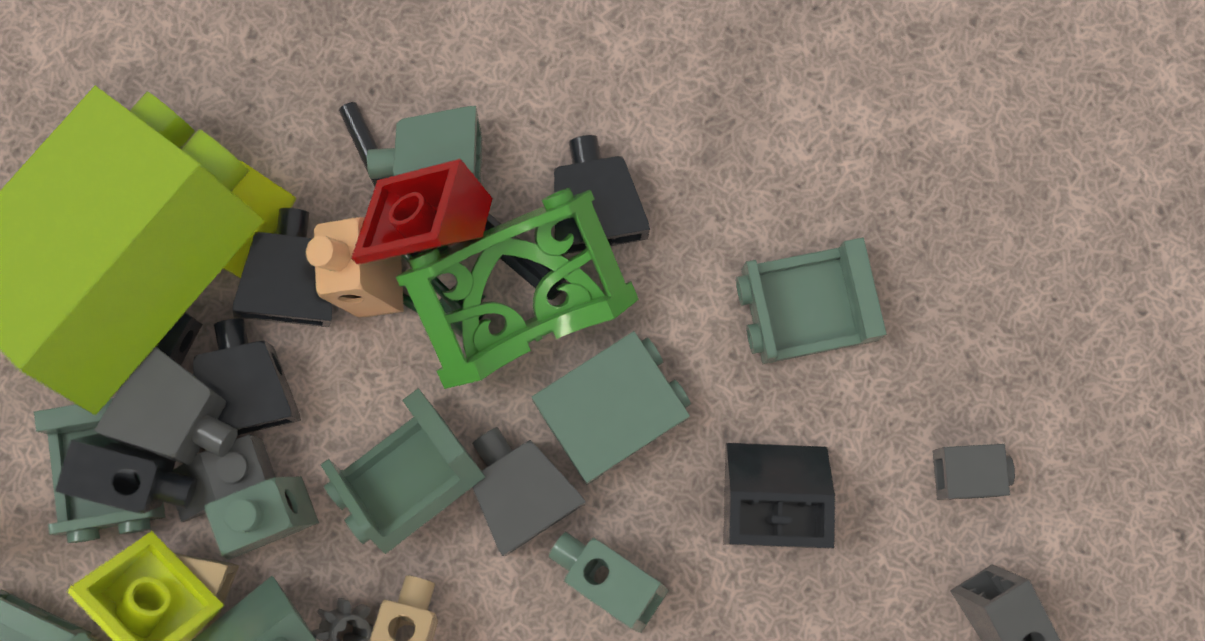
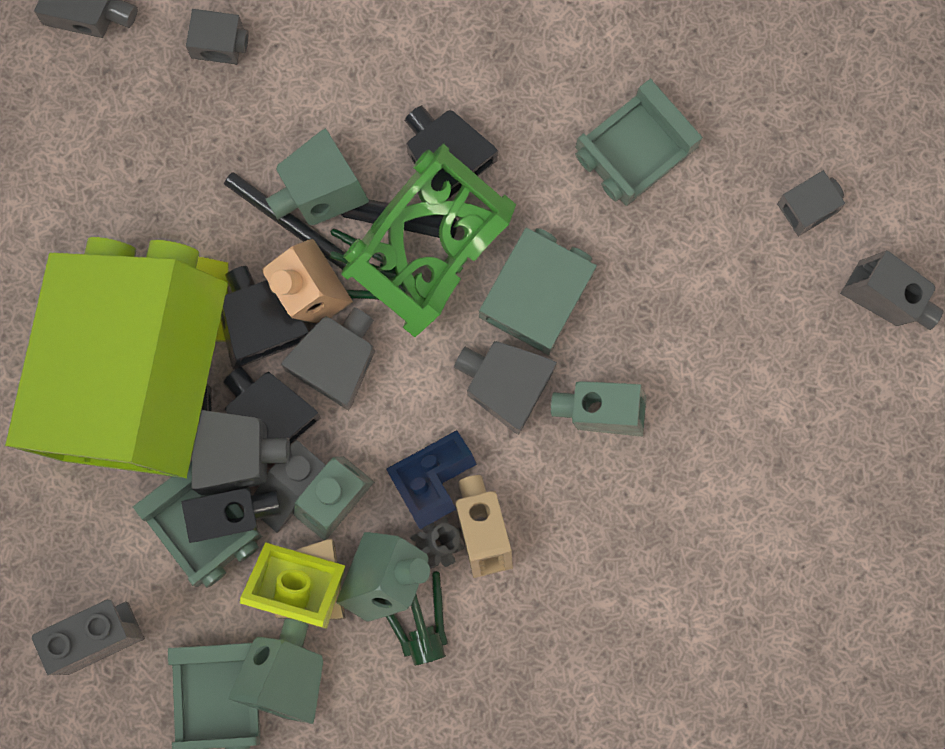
camera: 25 degrees left, 0 degrees up
(347, 363) = (334, 357): none -> dark grey torso
(358, 568) = (422, 476): none -> dark blue plate
(403, 478) = (421, 411): sand green panel -> none
(422, 212) = (334, 219): red slope -> none
(778, 496) = (688, 290): black slope -> none

